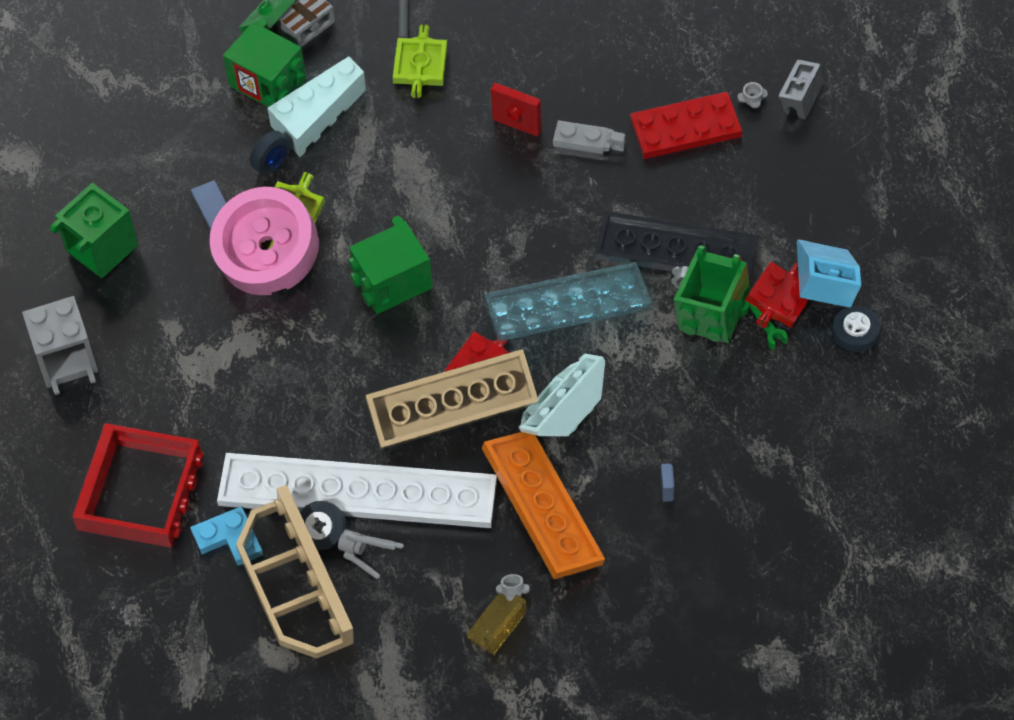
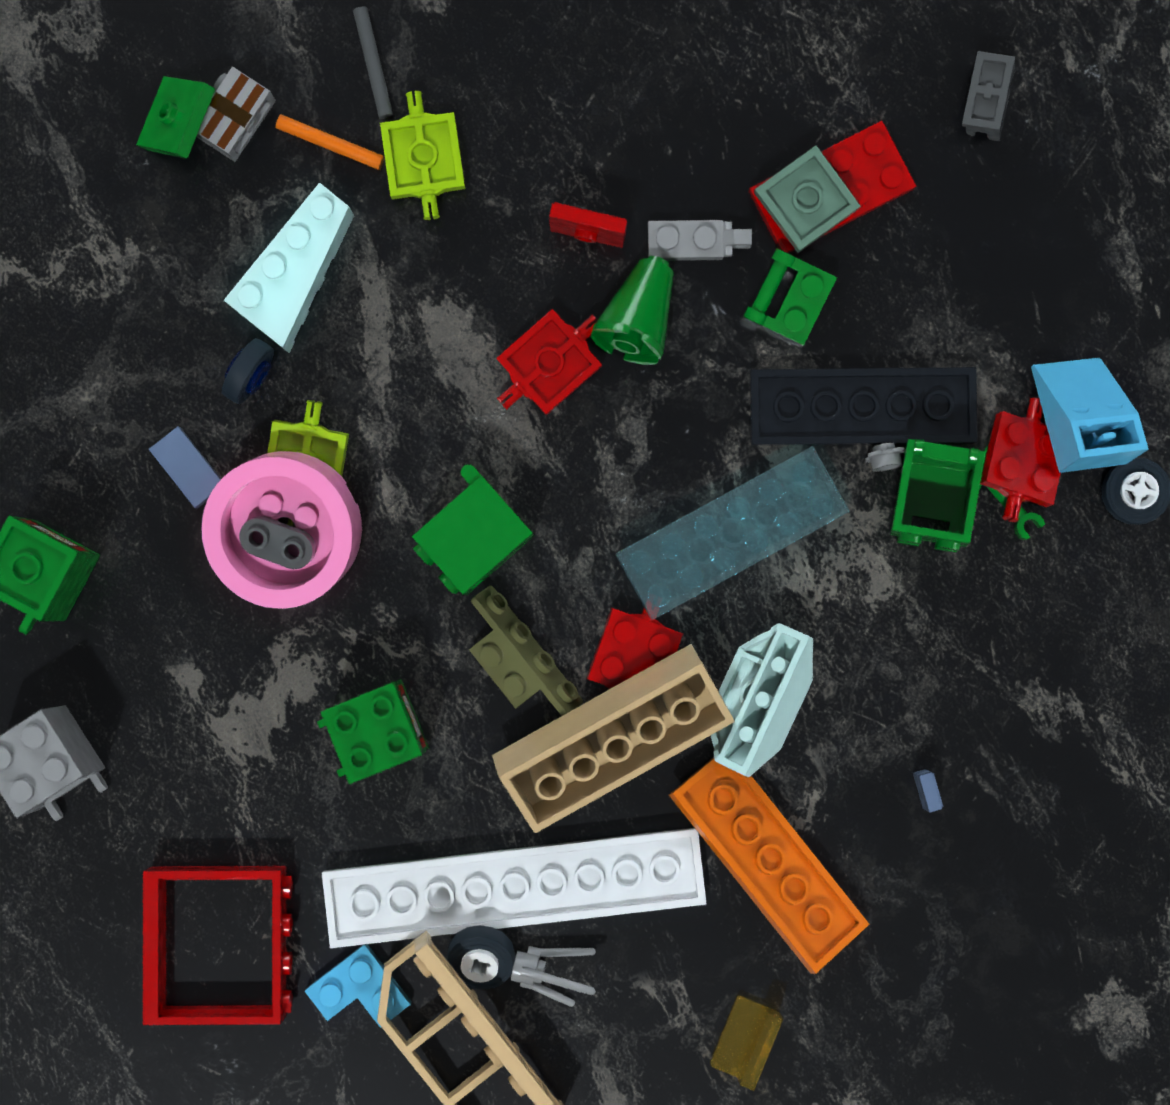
camera: 20 degrees left, 30 degrees up
(257, 244) = (275, 544): none -> dark grey plate
(264, 64) = (198, 219): green container -> none
(288, 366) = (374, 731): none -> green container
(362, 46) = (329, 142): none -> orange bar
(396, 349) = (516, 658): none -> olive bracket
(470, 186) = (548, 362): none -> red plate
(512, 585) = (756, 979): light grey plate -> none
(534, 167) = (638, 314): none -> green cone
(648, 182) = (801, 303): none -> green plate
(664, 119) = (807, 199): none -> sand green plate
(752, 89) = (928, 113): light grey plate -> none

